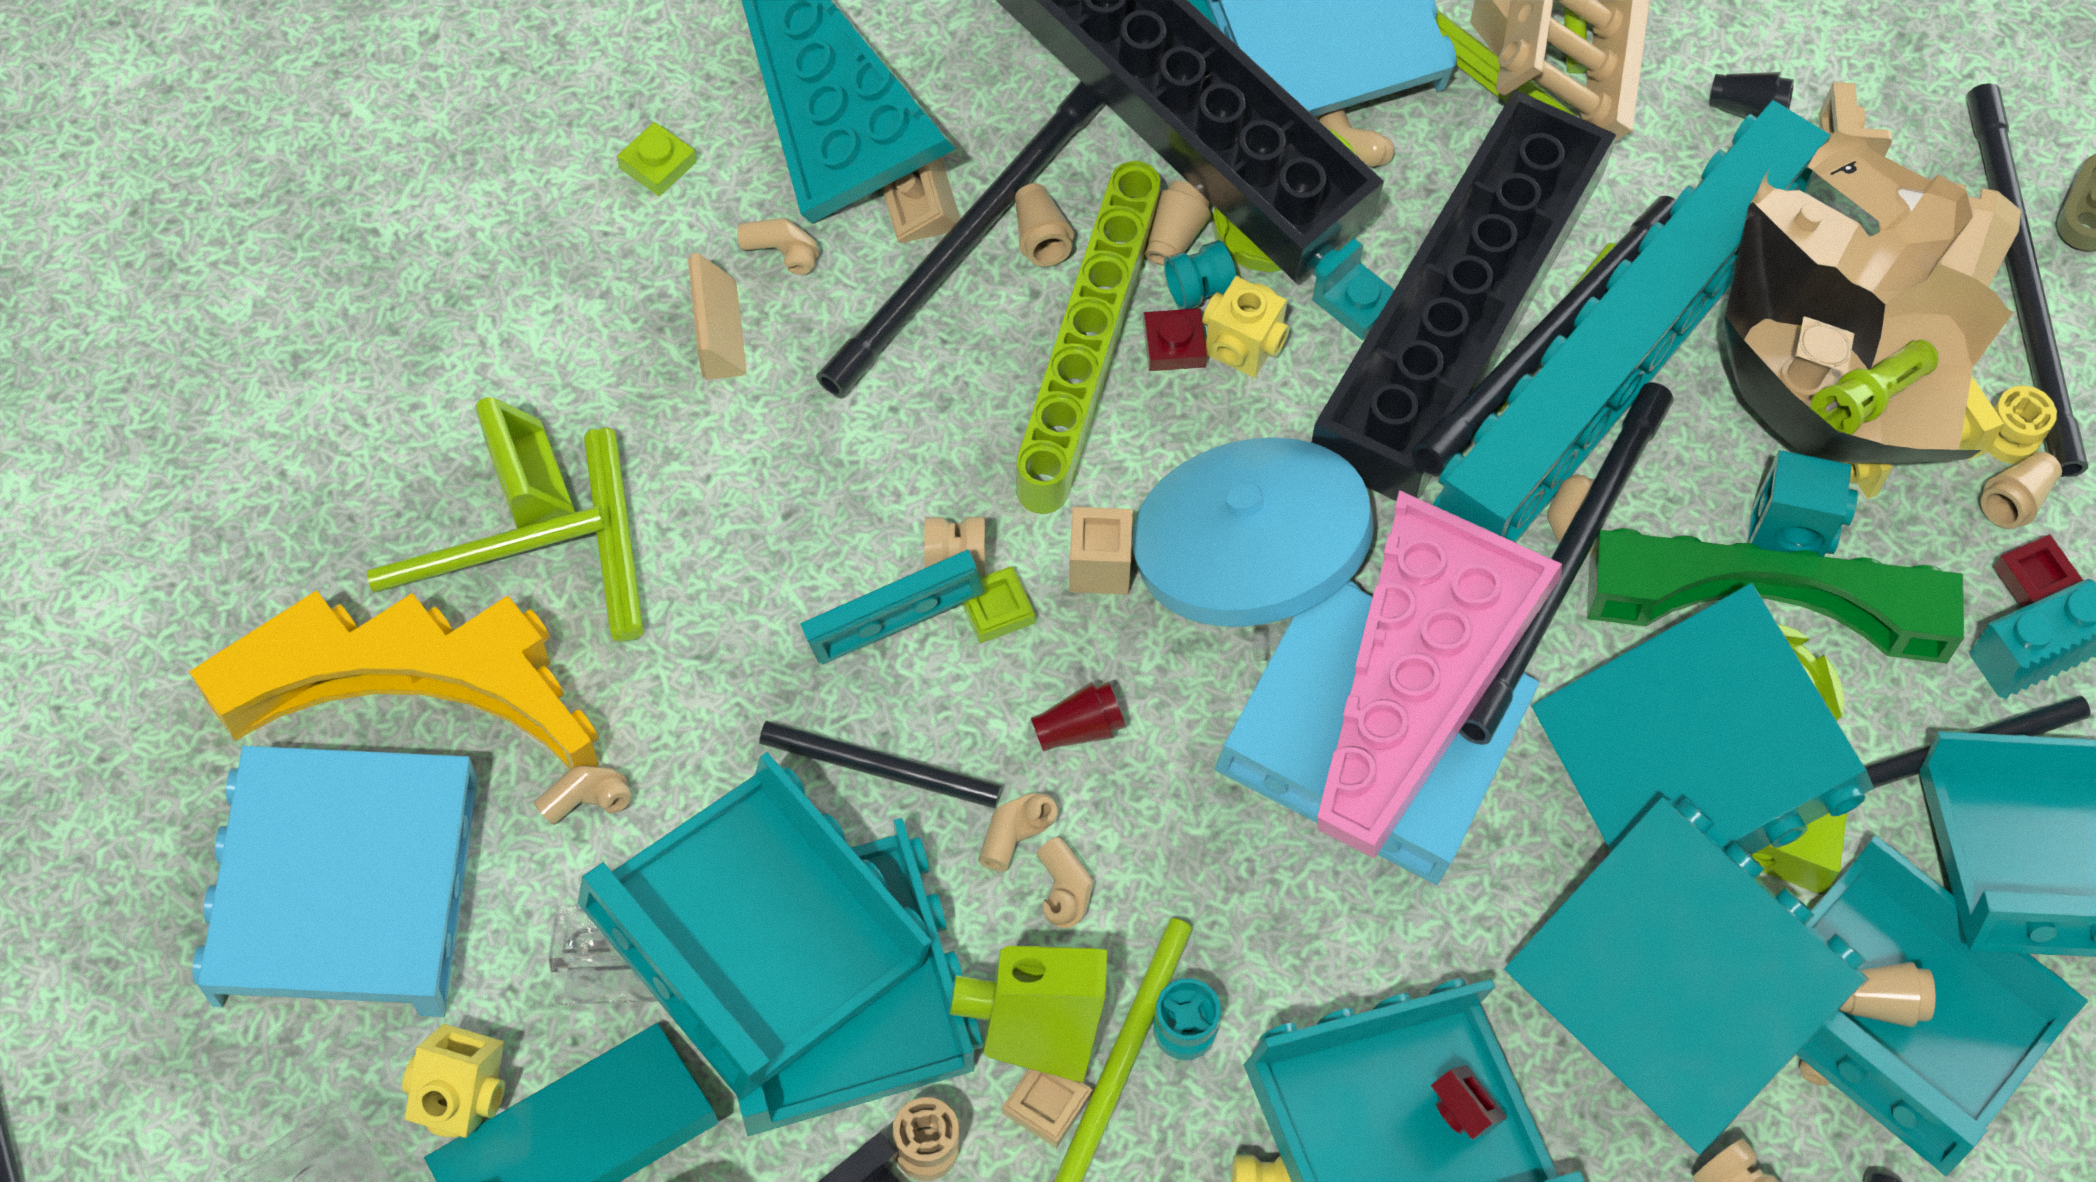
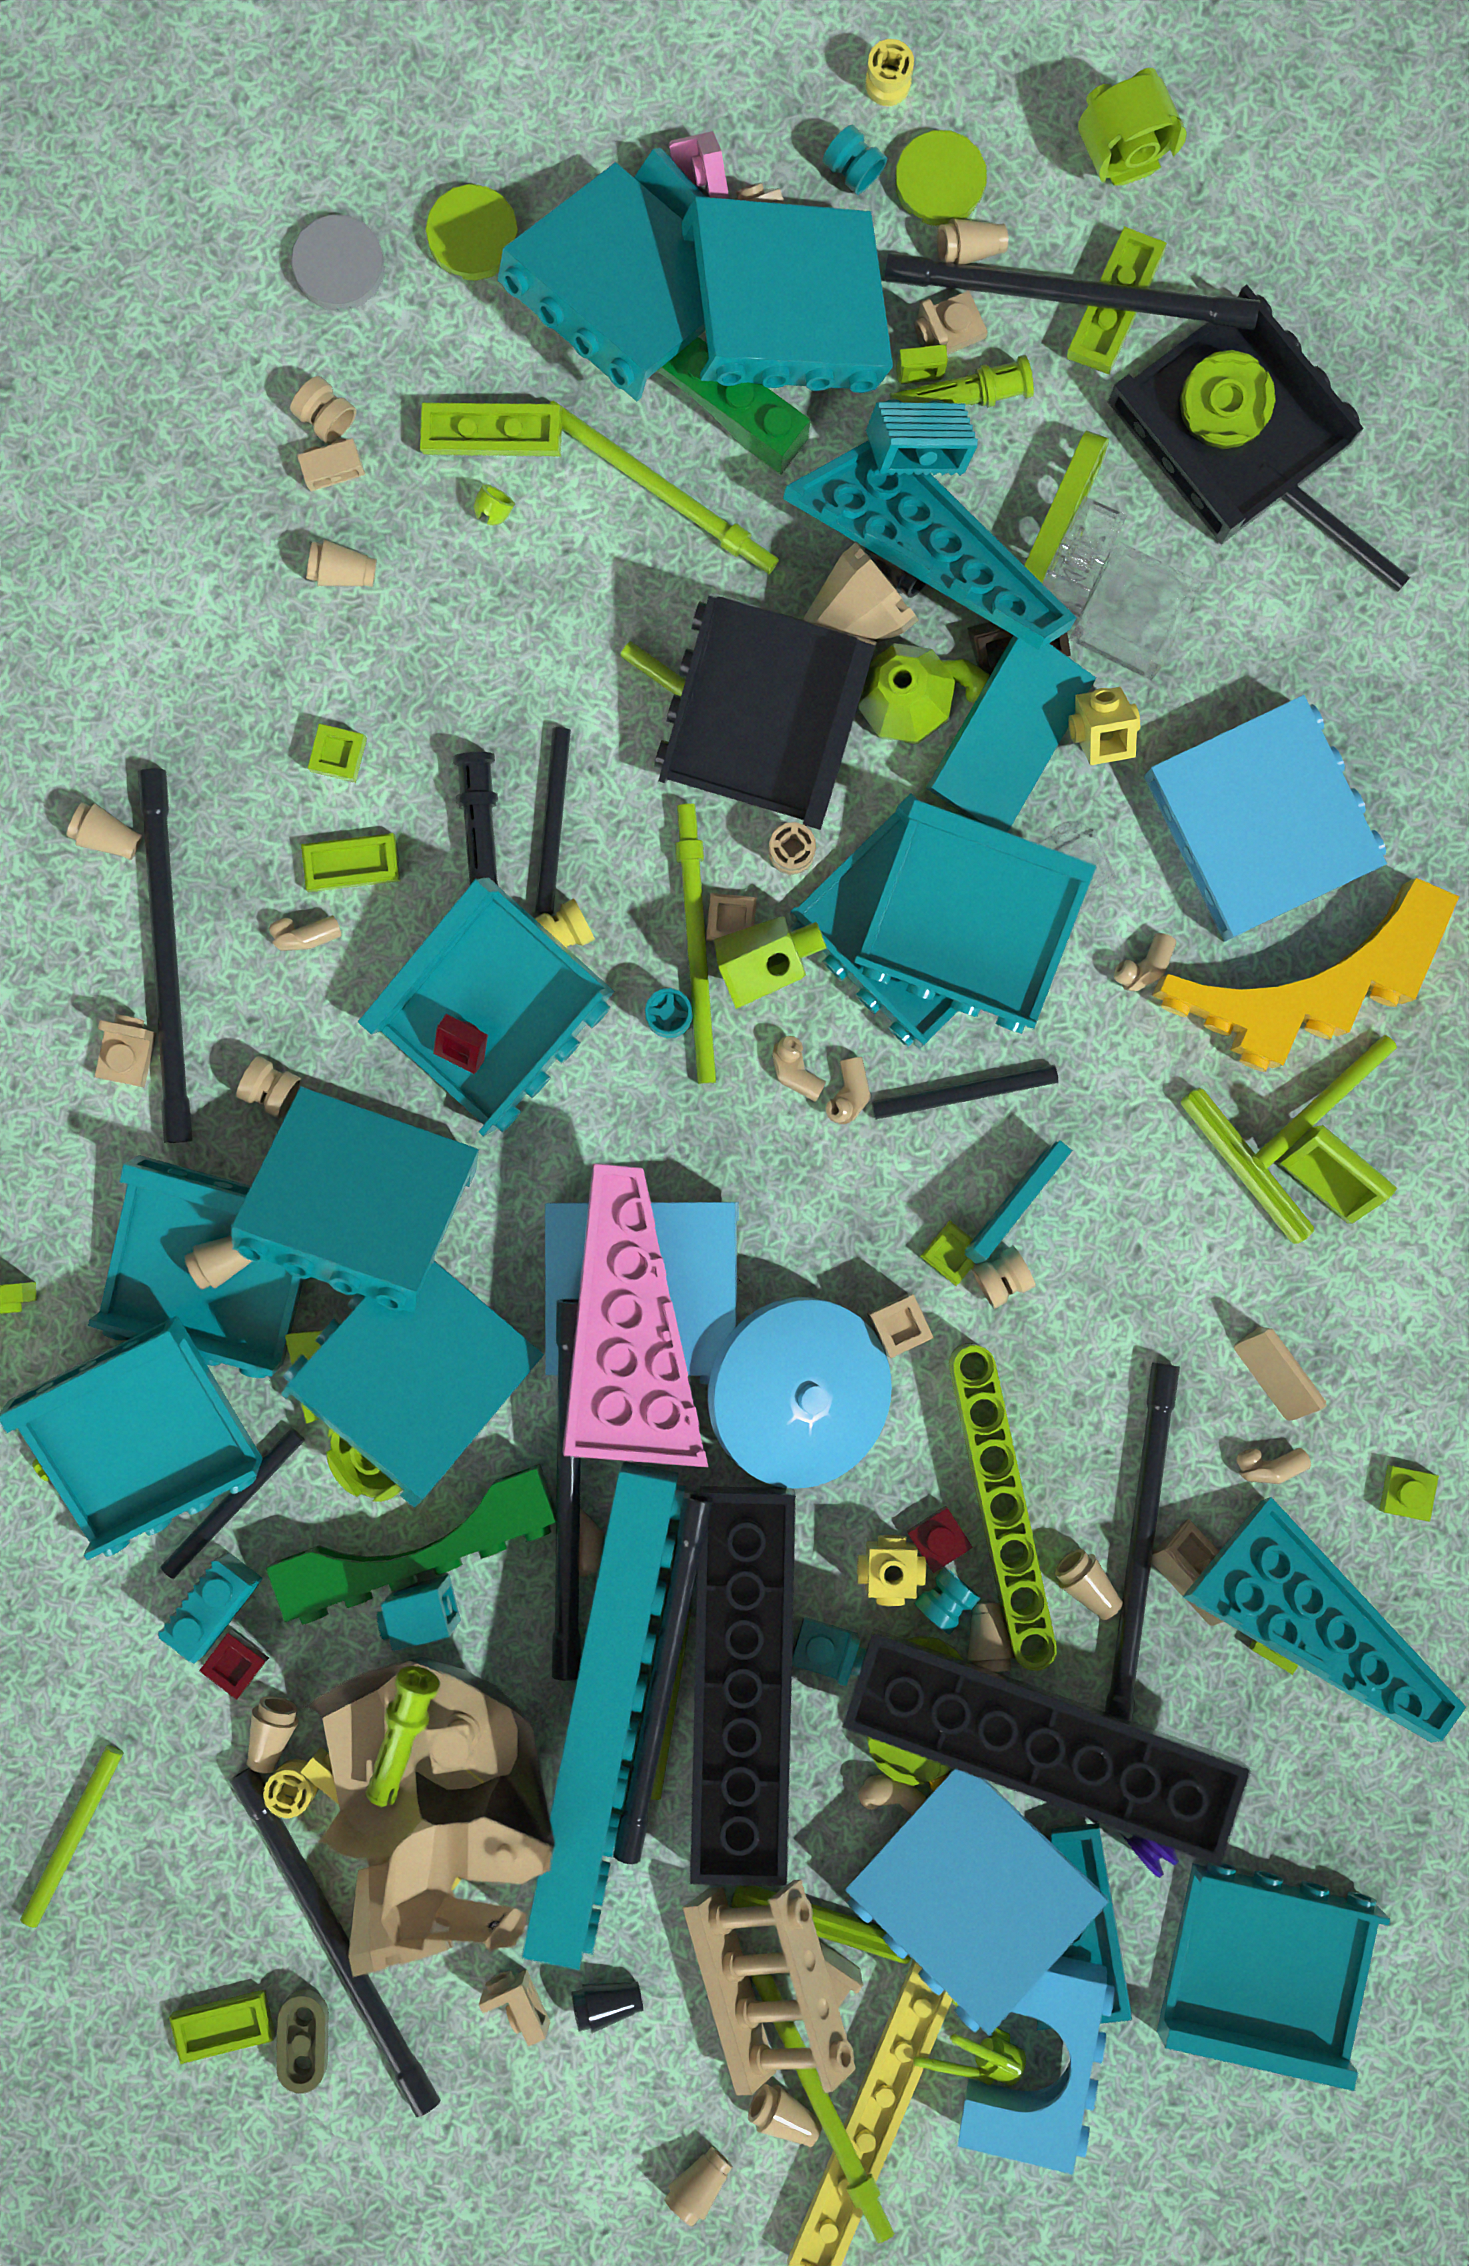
camera: 150 degrees right, 25 degrees up
(1080, 718) = (847, 1193): dark red cone -> none

